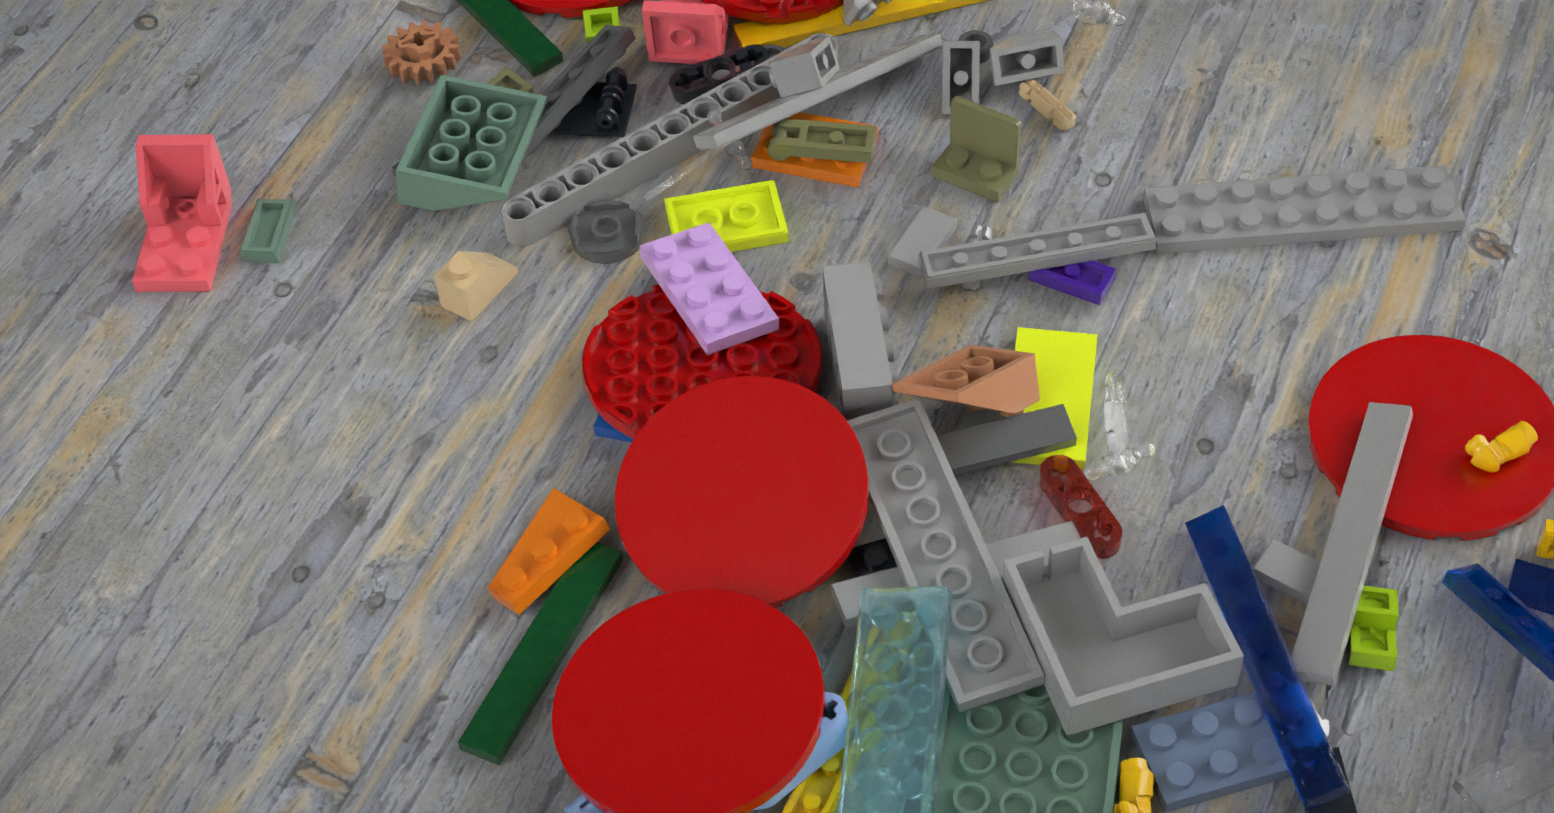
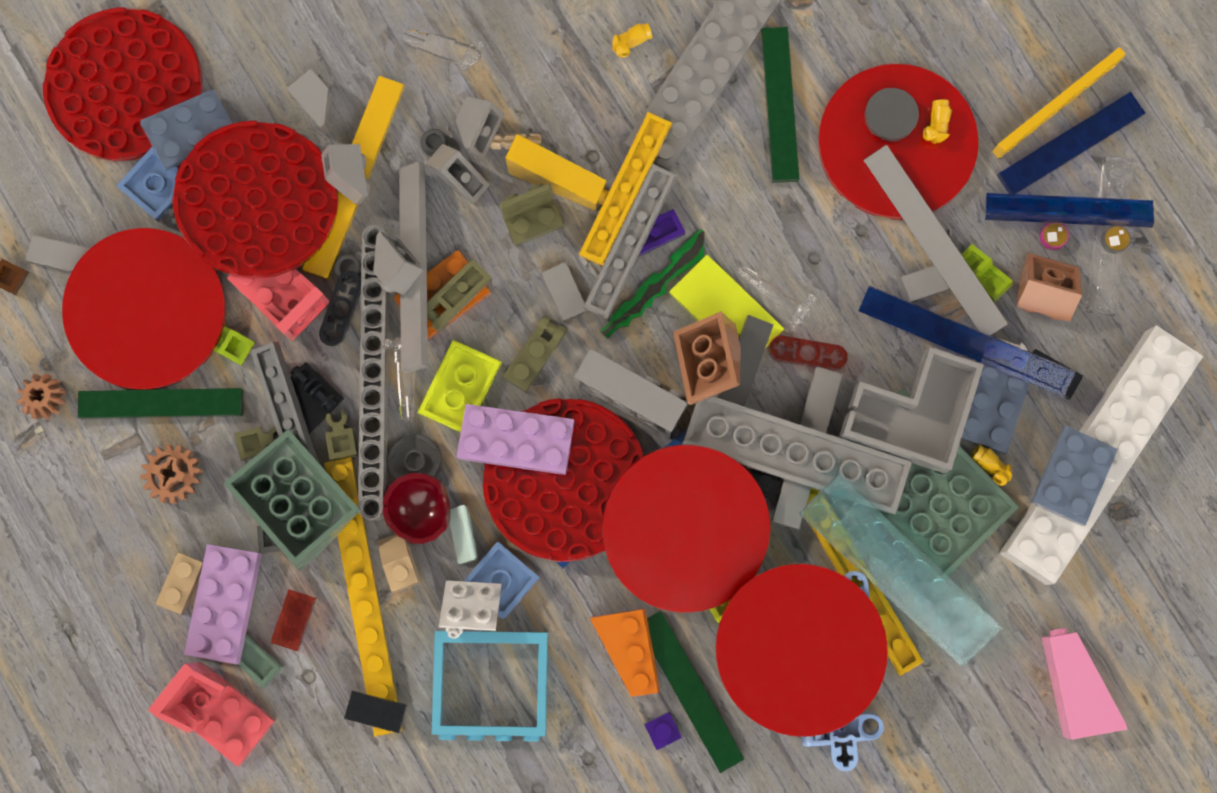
camera: 55 degrees left, 30 degrees up
(282, 350) = (375, 711): none -> black tile
(307, 129) = (180, 583): none -> tan plate
(310, 169) = (223, 604): none -> lavender plate
(337, 232) = (293, 620): none -> clear red plate
(388, 295) = (363, 593): none -> yellow plate
(426, 491) = (501, 733): none -> medium azure window
(468, 651) = (662, 731): none -> dark purple plate
(470, 350) = (469, 607): none -> white hinge
(530, 379) = (504, 568): none -> medium blue plate
(553, 247) = (417, 508): none -> dark red cylinder
(559, 318) = (463, 535): none -> light aqua slope
(572, 150) = (340, 441): none -> olive plate
(805, 258) = (534, 354): none -> olive plate
(1011, 315) = (655, 286): none -> green sword
(1044, 142) = (538, 165): none -> yellow slope
(1156, 199) = (625, 188): none -> yellow tile
(1267, 126) = (633, 37): none -> yellow arm
(1345, 298) = (780, 105): none -> dark green tile
(1431, 706) = (1049, 287): none -> nougat slope
(1456, 398) = (891, 114): none -> dark grey tile
(1508, 676) = (1054, 236): none -> tile

